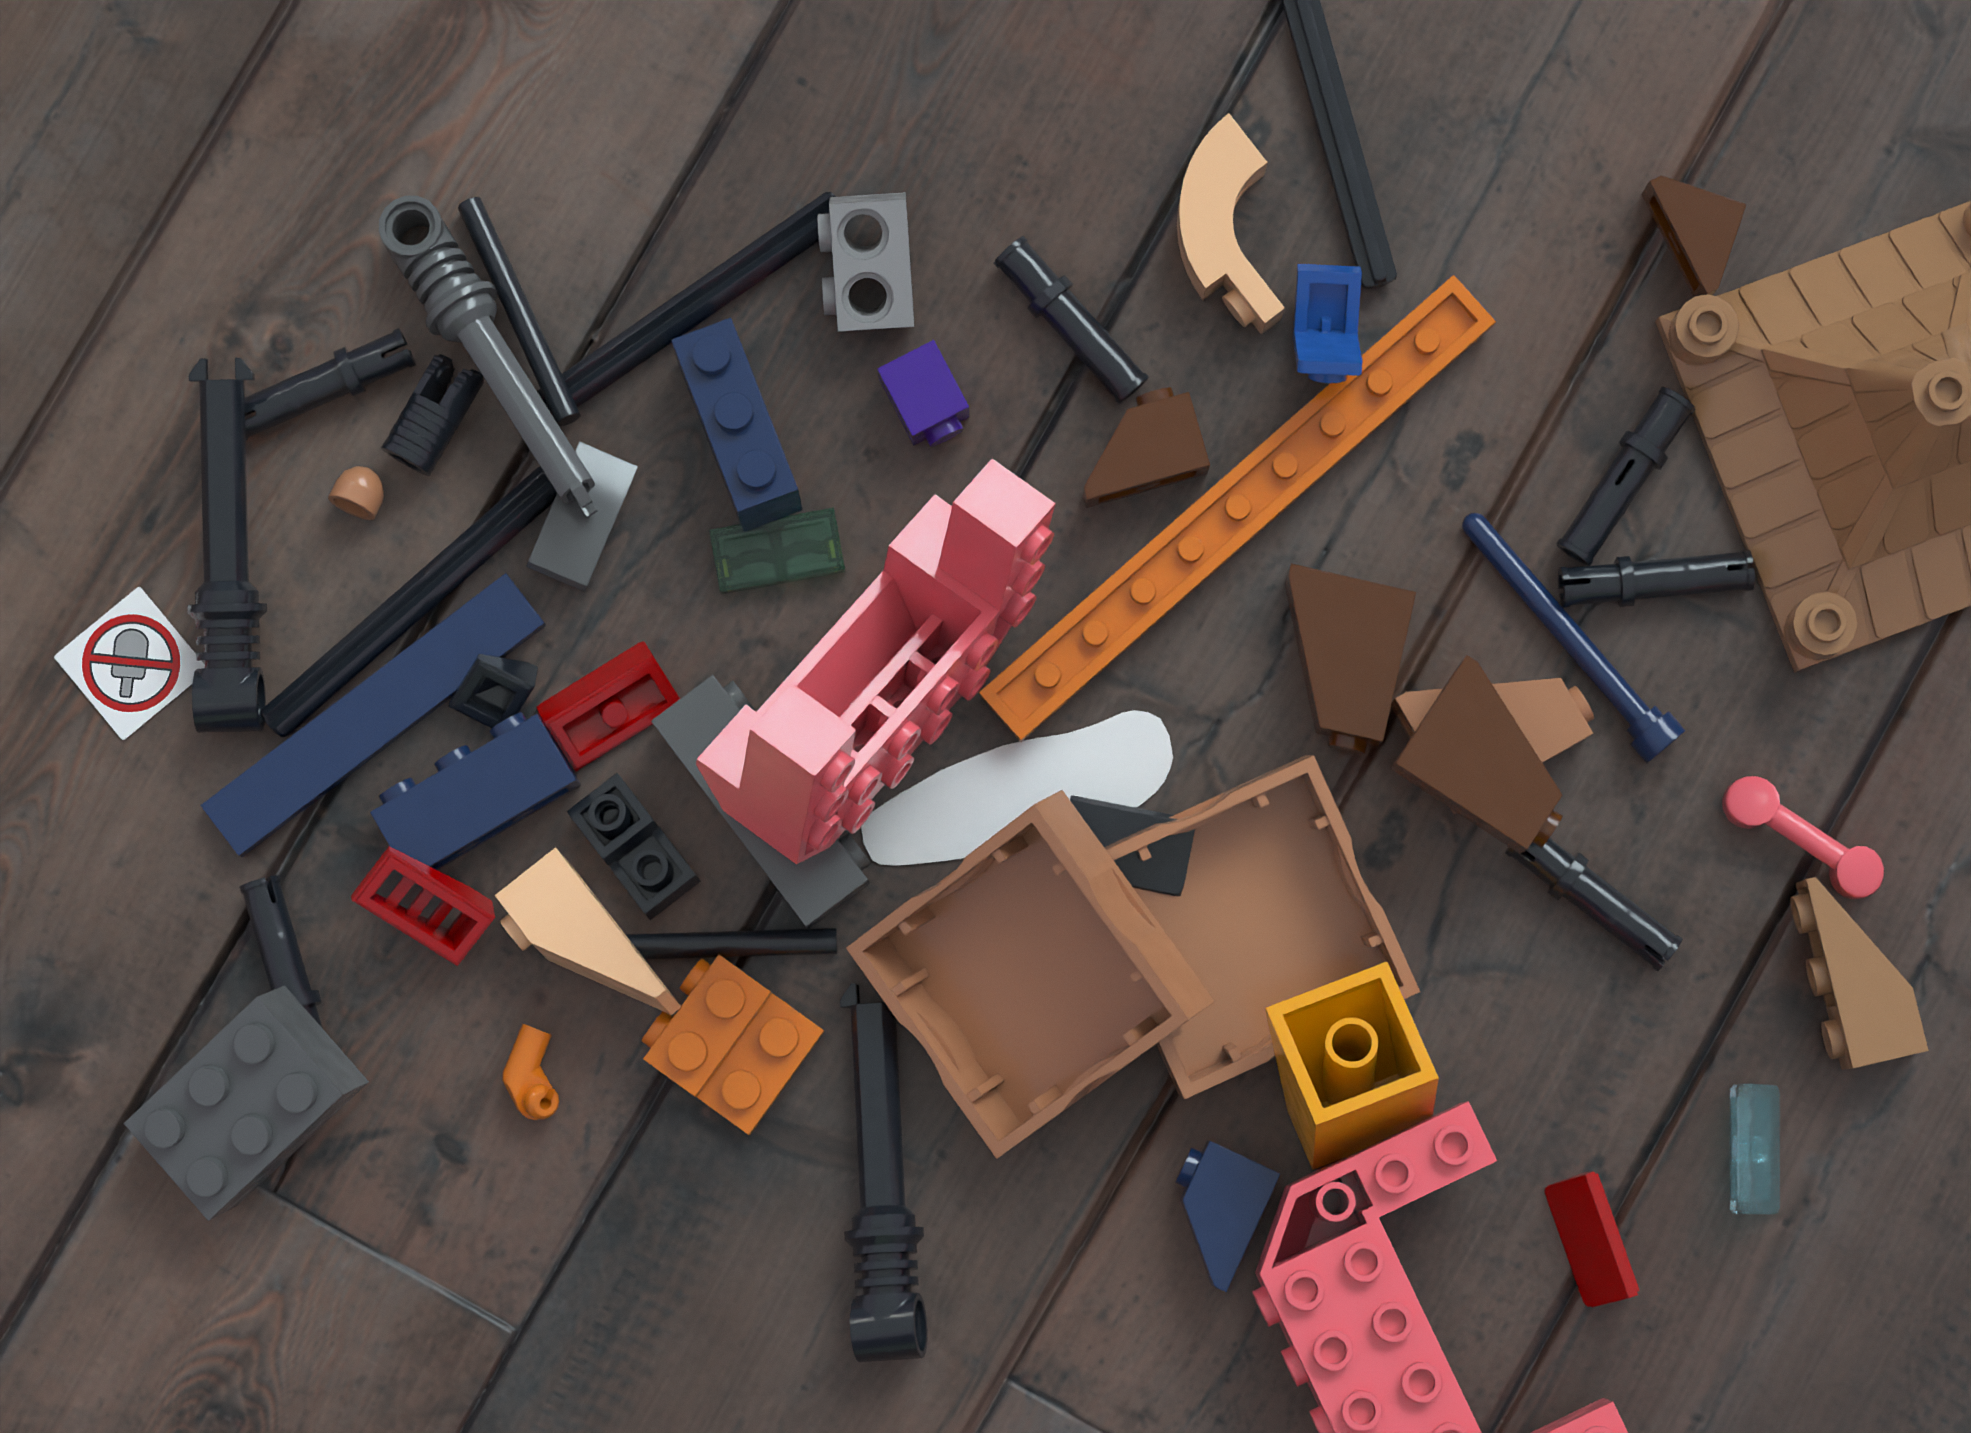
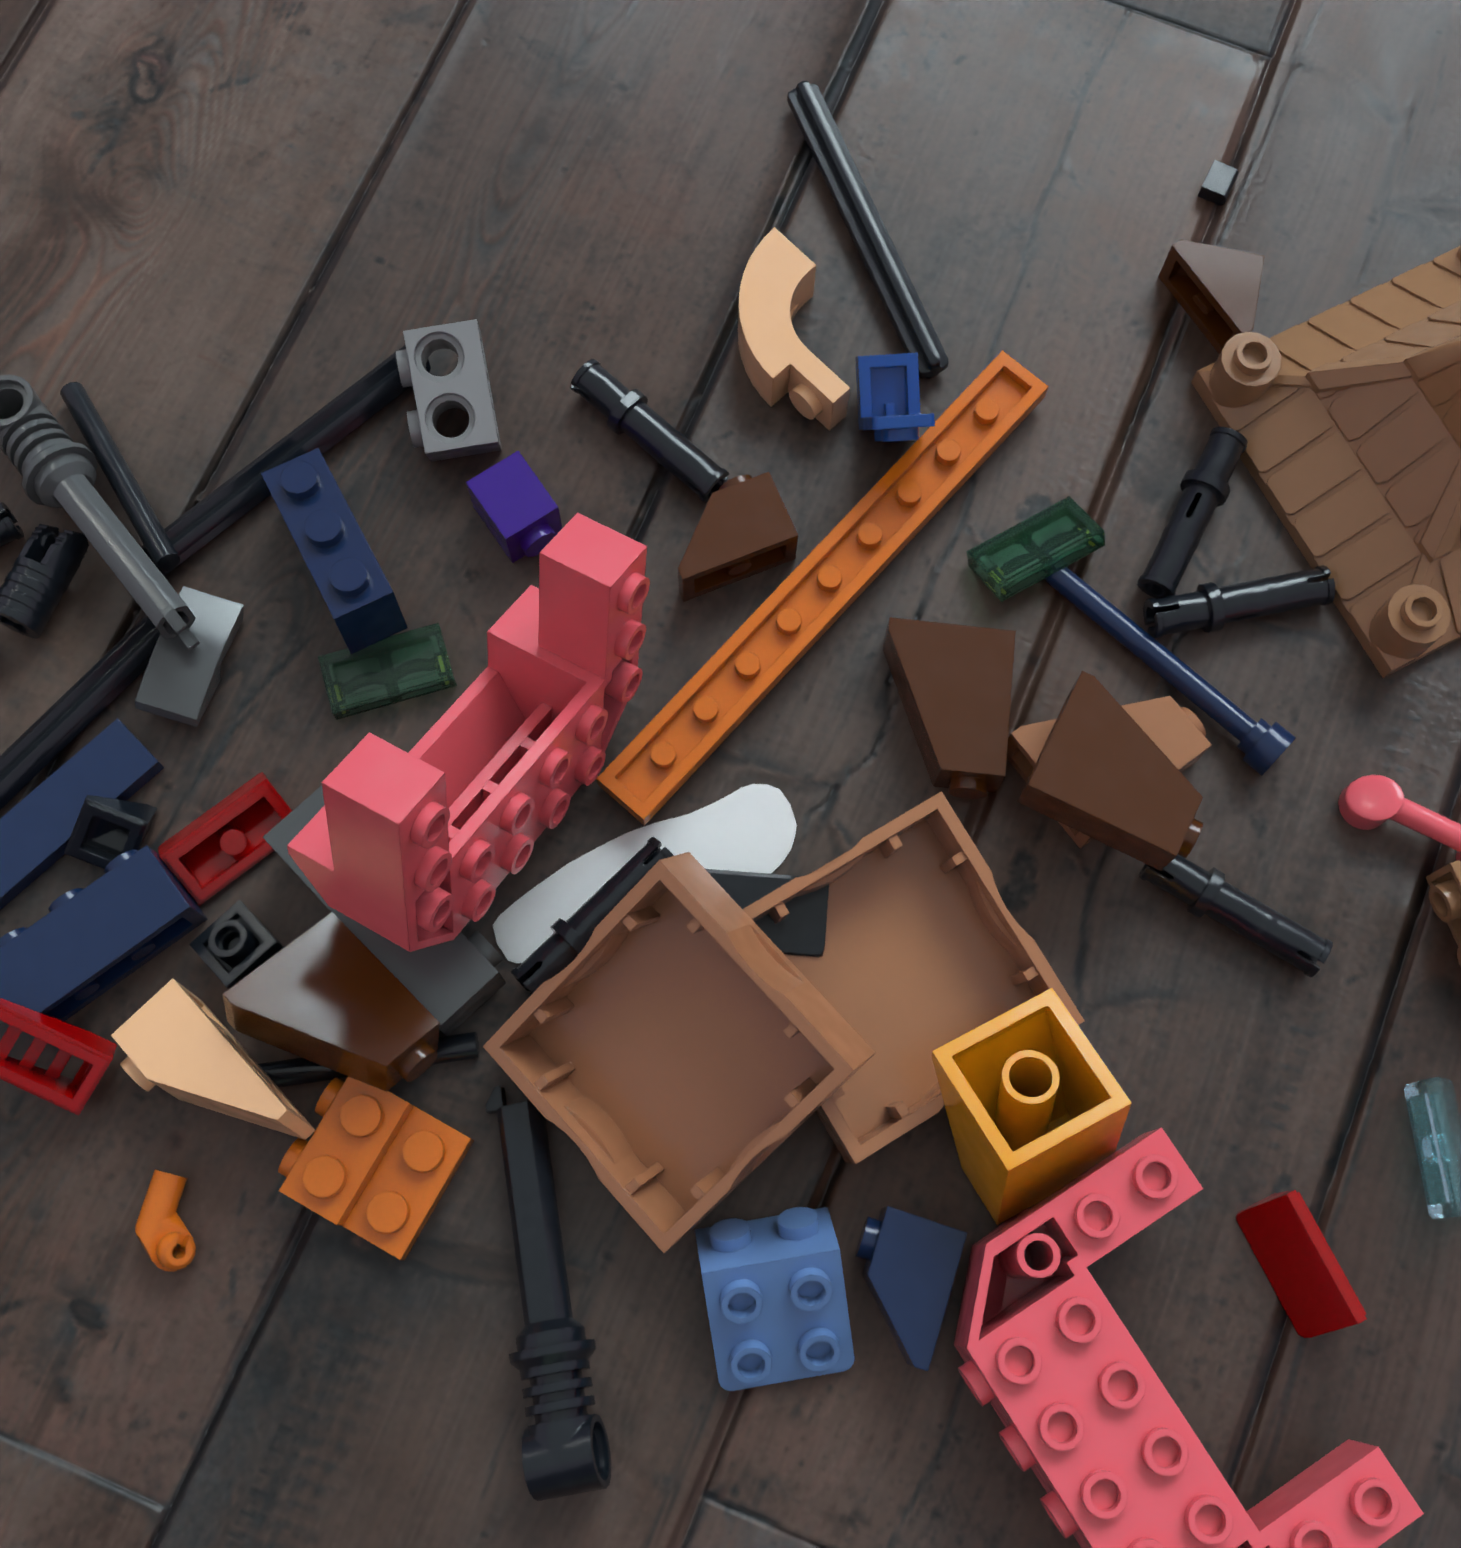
camera: 10 degrees left, 10 degrees down
(712, 896) = (336, 1008): none -> reddish brown slope
(964, 832) = (572, 935): none -> black pin
(1095, 1210) = (775, 1298): none -> medium blue bracket
(1456, 496) = (1035, 548): none -> clear green tile
(1725, 92) = (1218, 183): none -> piece

